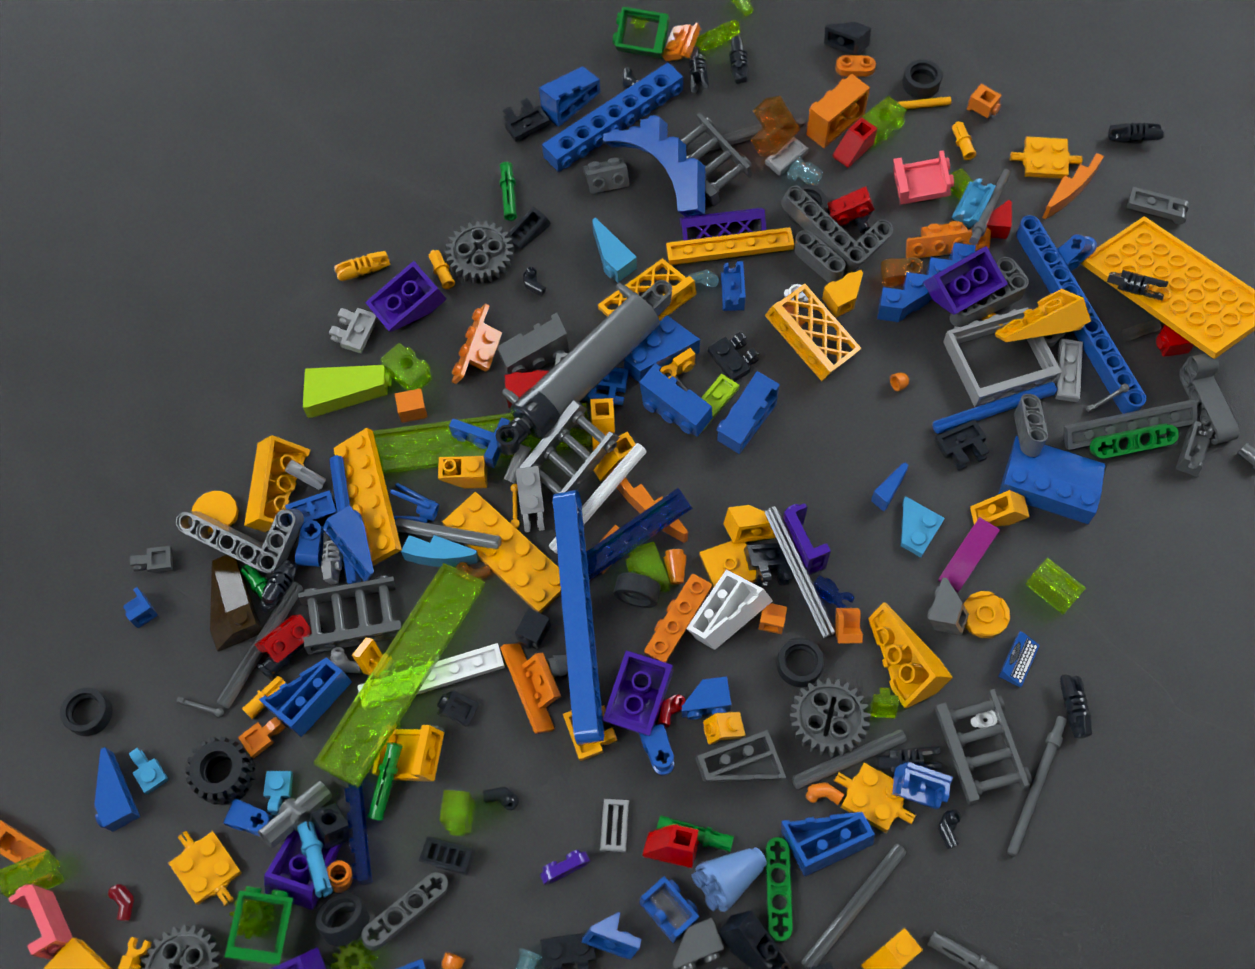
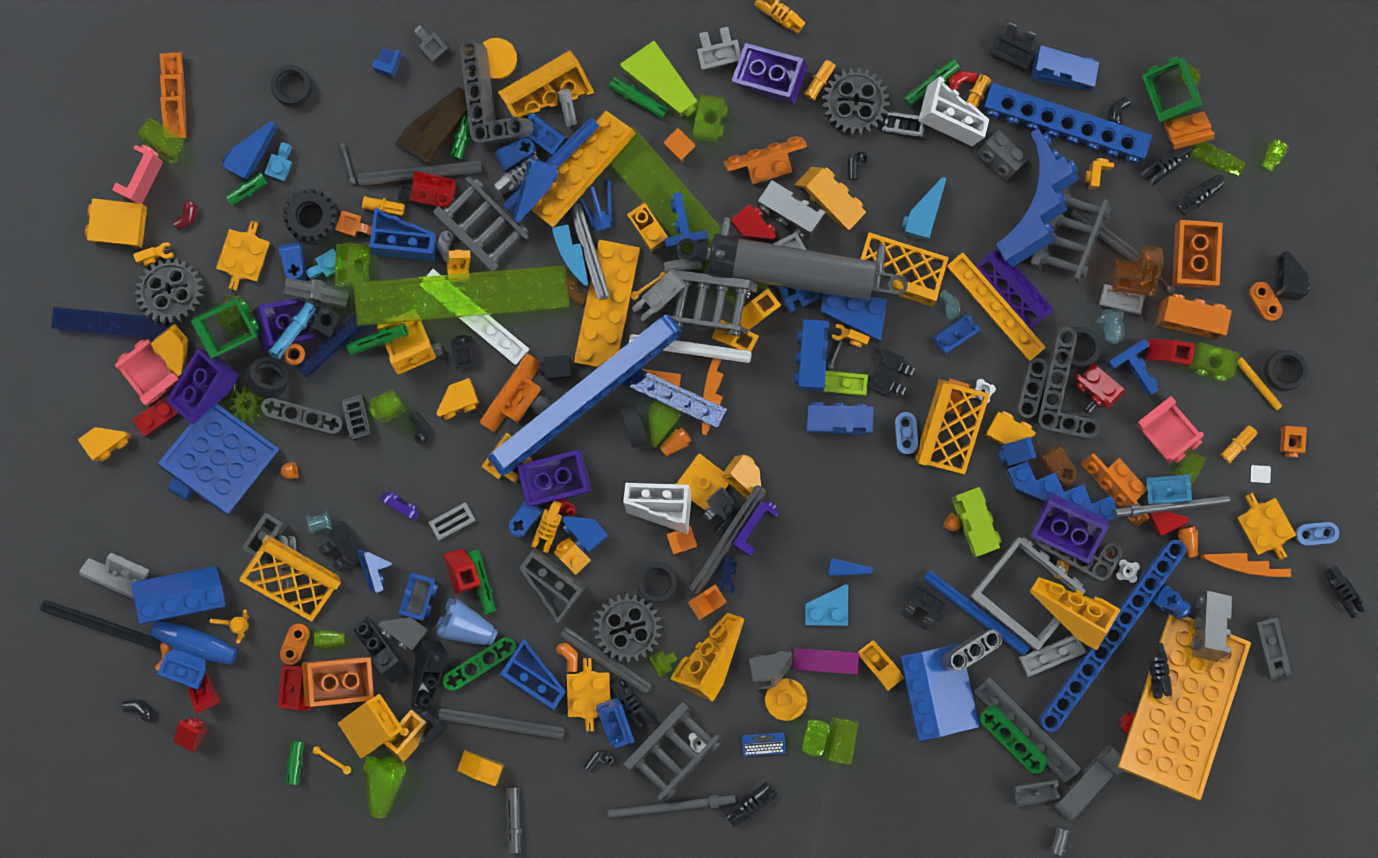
camera: 55 degrees right, 20 degrees up
(142, 838) = (246, 189): none -> green pin
(278, 585) = (468, 154): black hinge -> none
(295, 760) = (351, 264): none -> clear neon green brick
(347, 413) = (629, 92): none -> green pin
(497, 739) = (457, 398): none -> light orange slope
(519, 169) = (960, 77): none -> red arm
(538, 308) = (831, 196): none -> light orange wedge
(542, 165) = (978, 90): none -> light orange axle
(545, 185) = (951, 114): none -> white wedge
(673, 120) = (1093, 175): none -> light orange bracket
(679, 615) = (630, 471): orange bracket -> none
(681, 729) = (548, 526): none -> light orange hinge
(787, 79) = (1197, 254): none -> orange brick
(795, 372) = (906, 433): none -> medium blue plate
(852, 174) = (1137, 367): none -> blue bracket
(869, 291) = (1017, 452): none -> blue slope
(912, 357) = (976, 522): none -> lime wedge
(997, 141) = (1260, 474): none -> white sticker
(1022, 210) = (1189, 537): none -> orange cone
(1026, 267) = (1131, 576): none -> white plate
(1041, 604) = (815, 738): none -> clear neon green gear
(1074, 126) = (1315, 533): none -> medium blue plate
(1119, 230) = (1212, 626): none -> wedge
(1124, 388) = (1052, 708): dark grey hinge -> none

